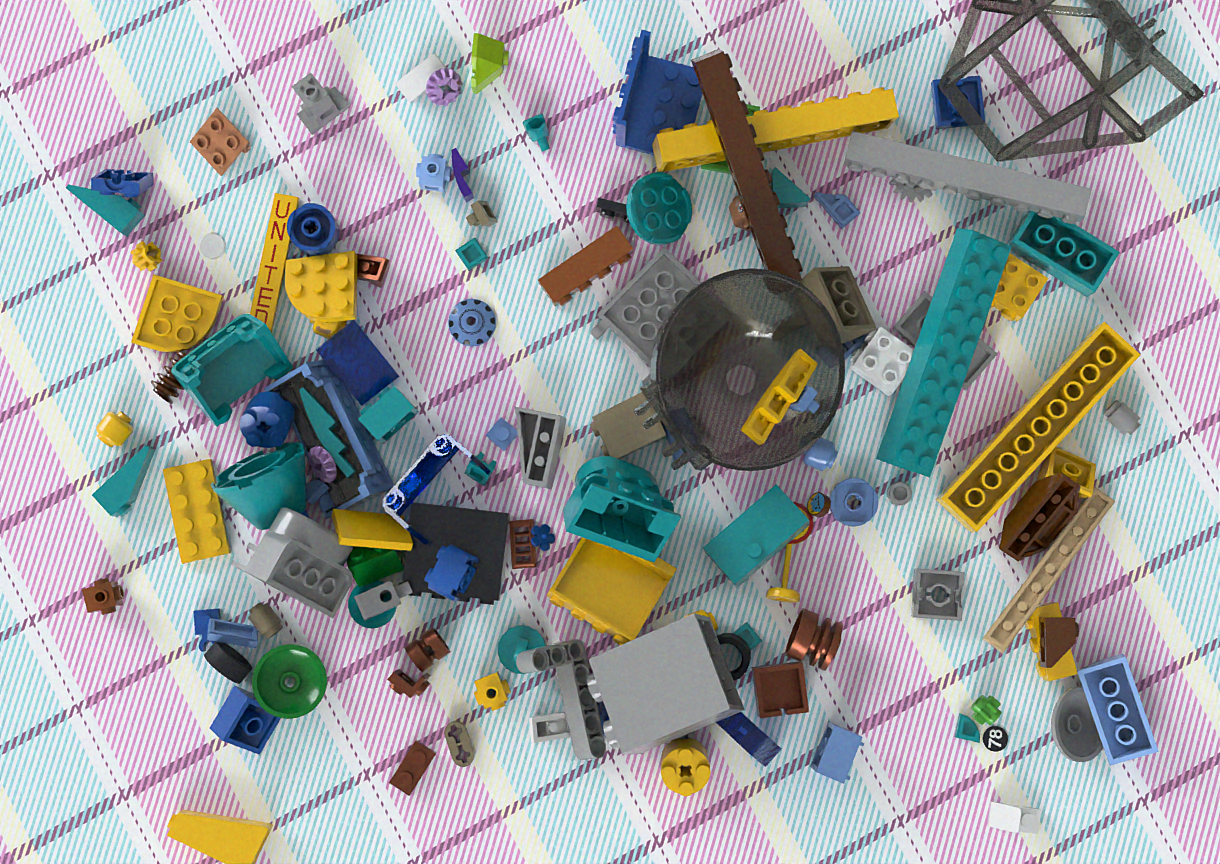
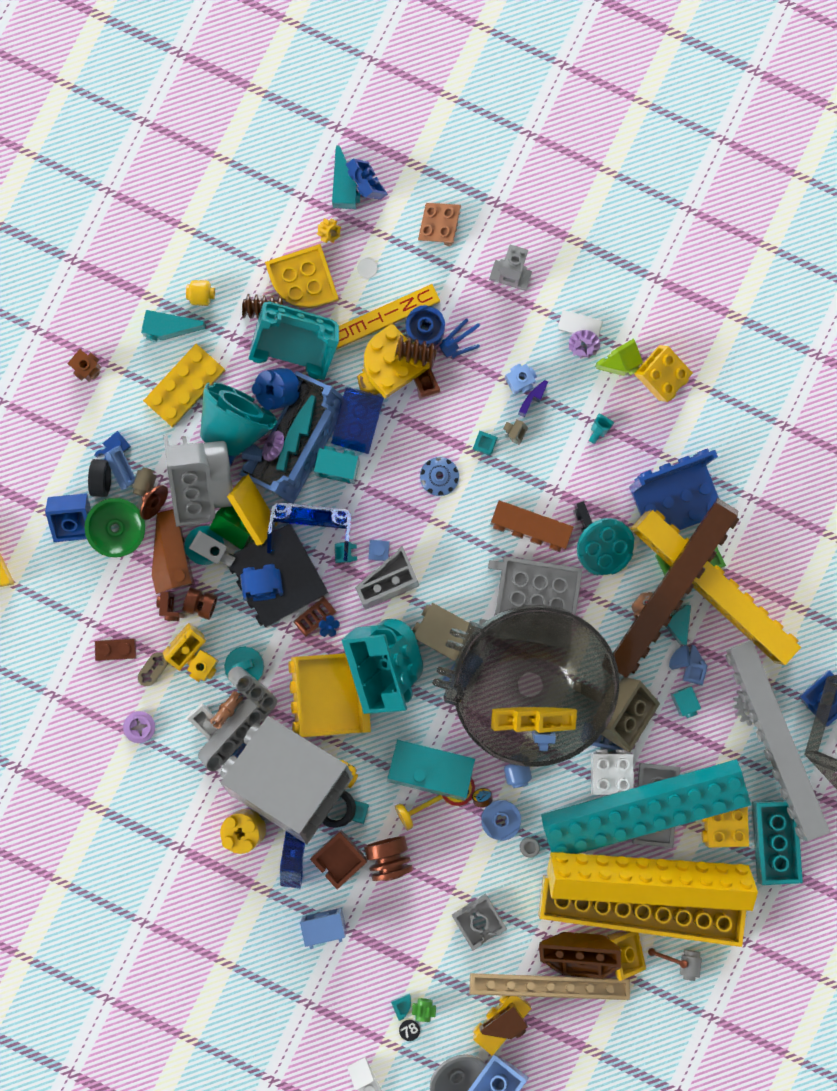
camera: 55 degrees right, 0 degrees up
(291, 624) = (153, 502): none -> copper dish
(330, 255) = (417, 352): none -> reddish brown piece
(349, 219) = (449, 345): none -> blue plant
(361, 648) = (170, 562): none -> dark orange wedge
(459, 695) = (184, 646): none -> yellow brick
(496, 801) = (135, 735): none -> lavender gear
(529, 30) = (663, 373): none -> yellow brick
(552, 697) = (226, 709): none -> nougat pin
(819, 215) = (680, 658): none -> medium blue tile
(865, 240) = (686, 702): none -> teal brick
(1016, 397) = (651, 881): none -> yellow brick
(1117, 423) = (683, 963): none -> copper hinge

